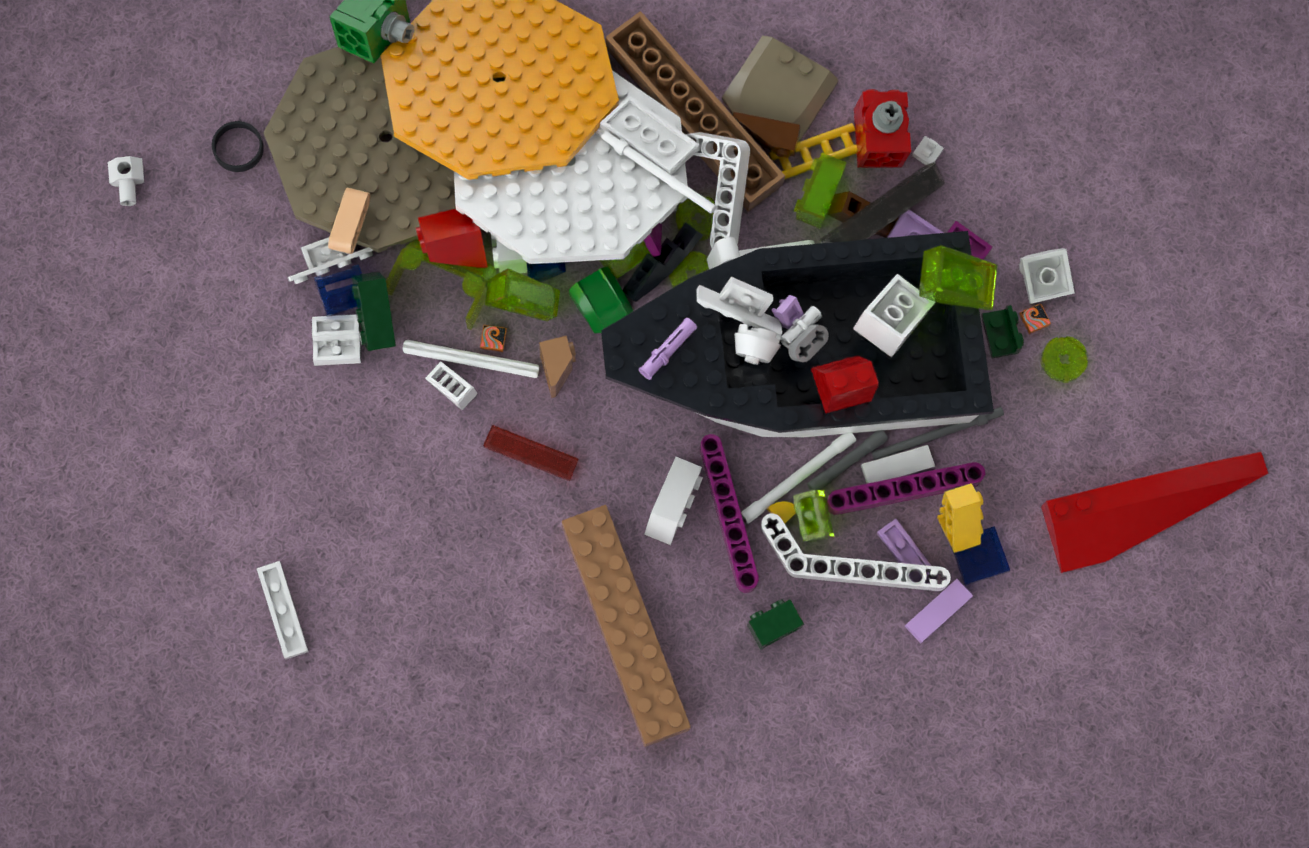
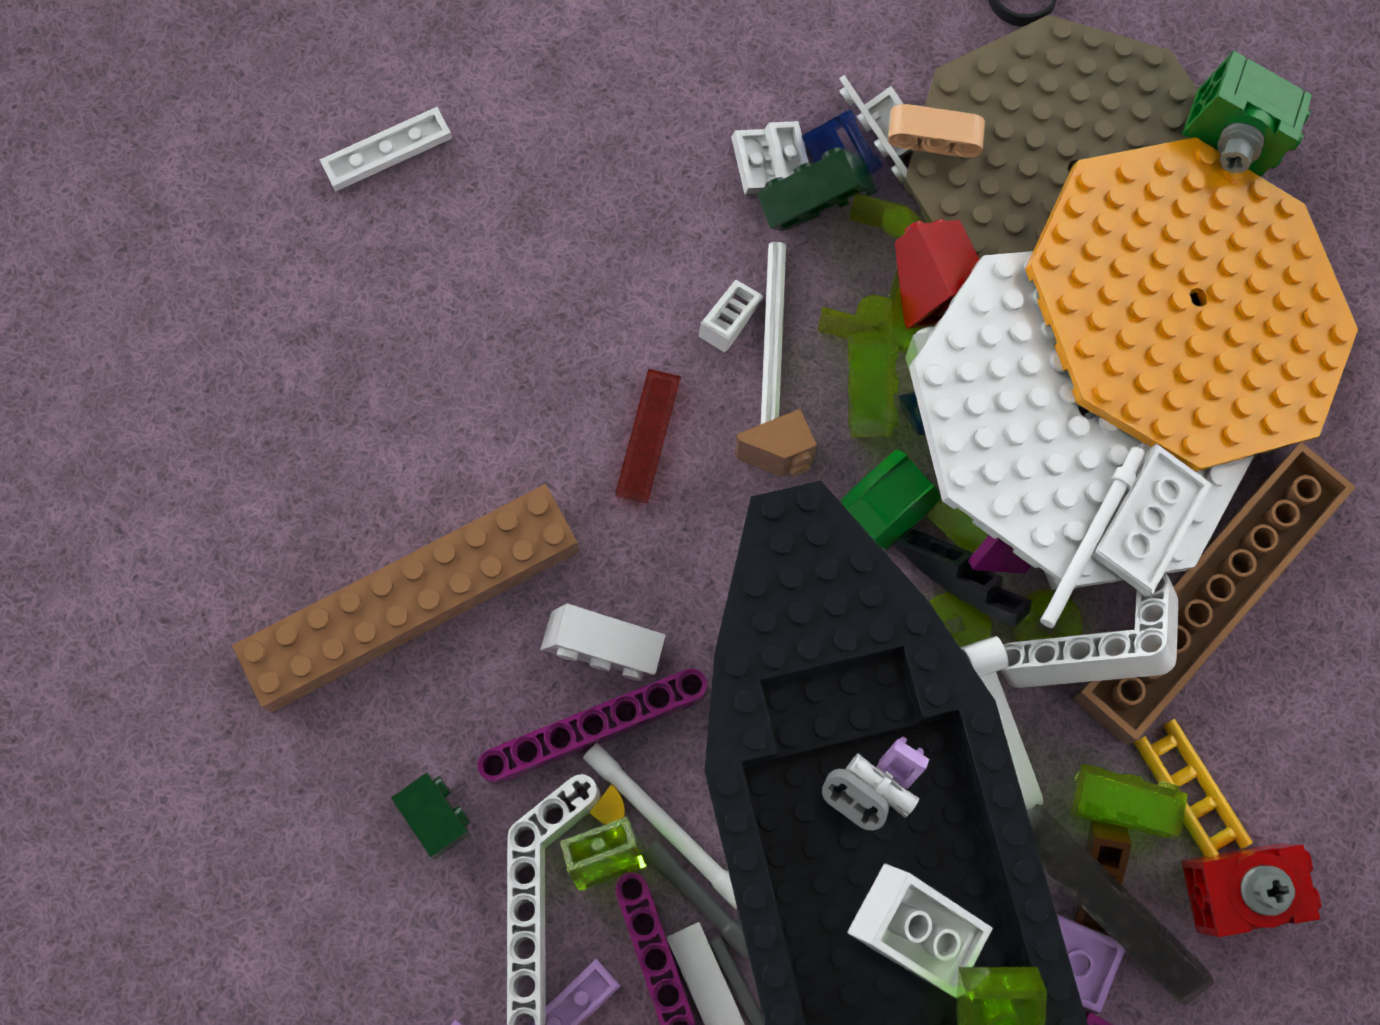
camera: 90 degrees right, 0 degrees up
(493, 338) = (808, 360): tile -> none
(664, 352) = (803, 577): lavender pin -> none
(741, 303) = (896, 683): white bracket -> none
(756, 344) = (836, 714): white cone -> none
(775, 135) = (1202, 722): reddish brown slope -> none
(780, 85) = (1278, 722): dark tan wedge -> none
(845, 383) = (790, 856): red slope -> none
(927, 151) = (1232, 972): white tile -> none

